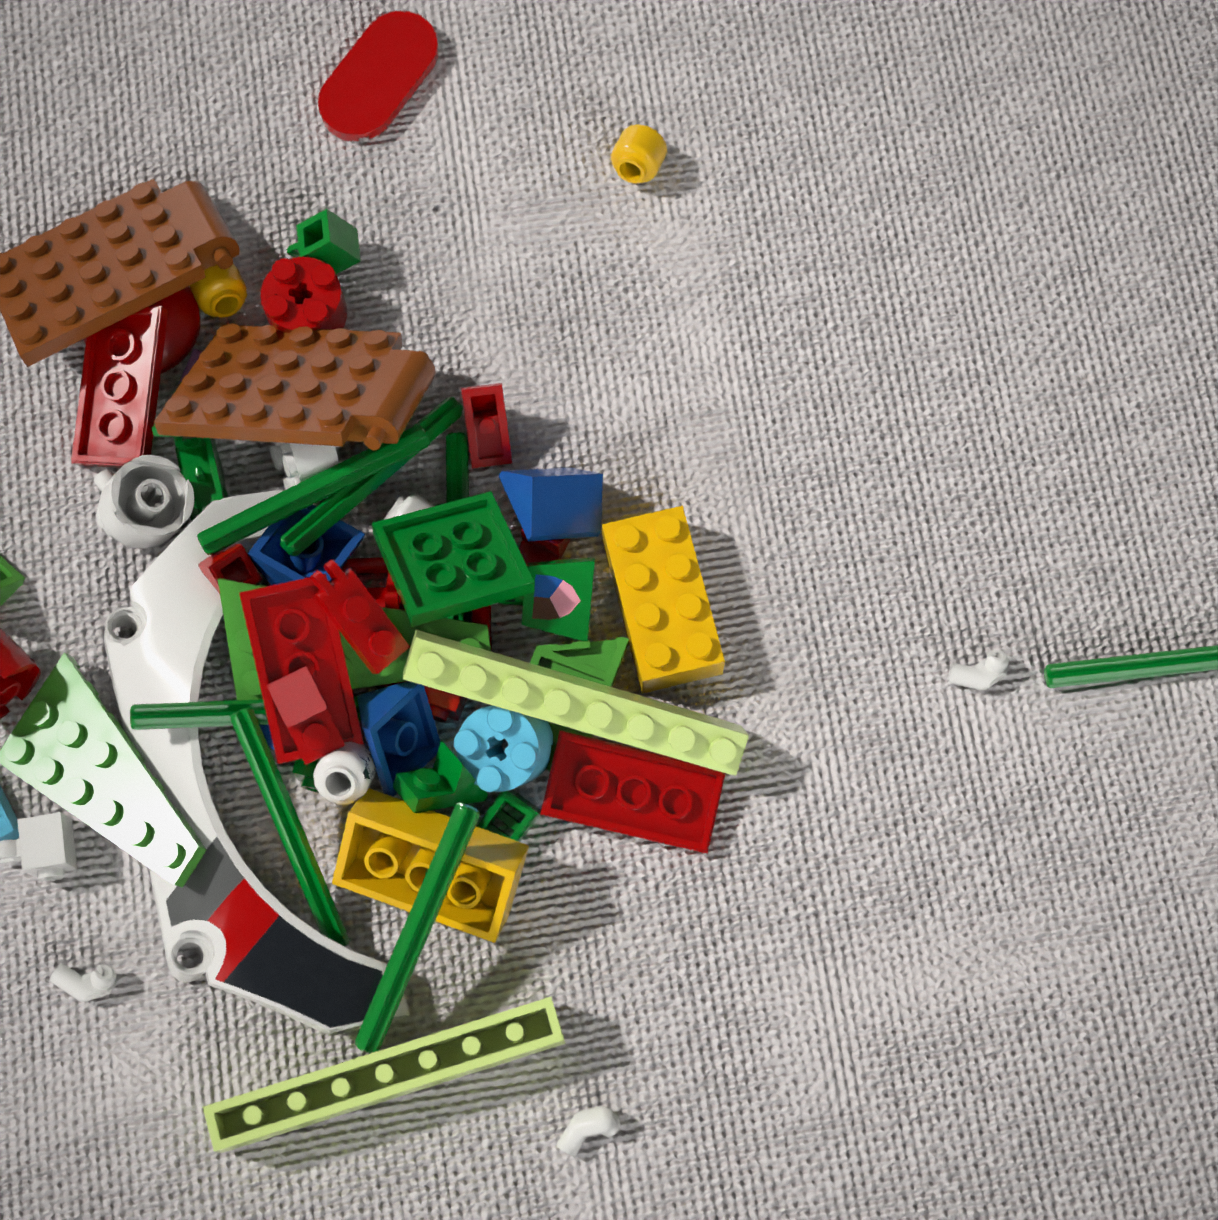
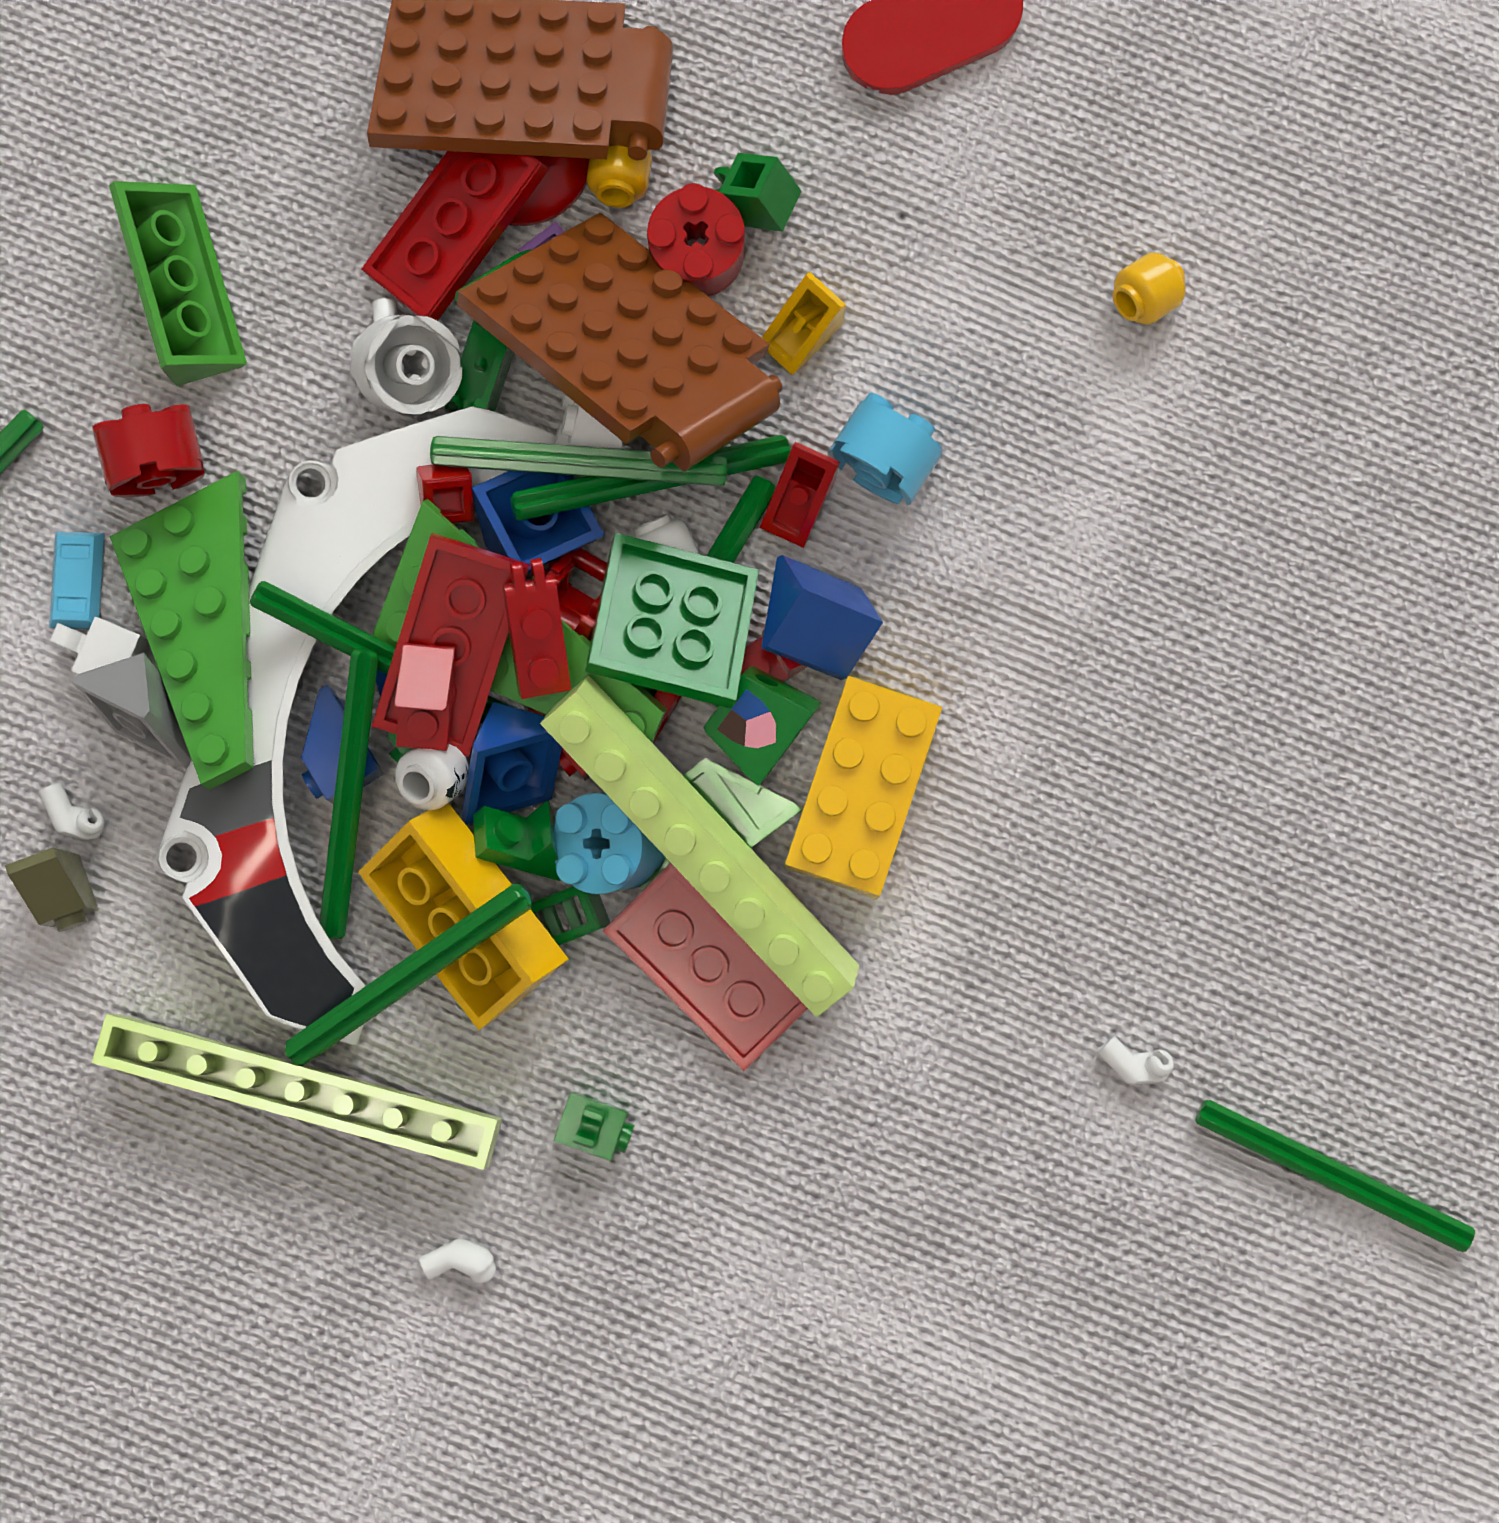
camera: 30 degrees right, 10 degrees up
(89, 865) = (136, 705): none -> light grey slope
(104, 1040) = (54, 888): none -> olive slope
(251, 810) = (323, 747): none -> blue slope
(416, 310) = (804, 323): none -> yellow slope
(529, 358) = (887, 449): none -> medium azure brick
(625, 961) = (594, 1126): none -> green brick

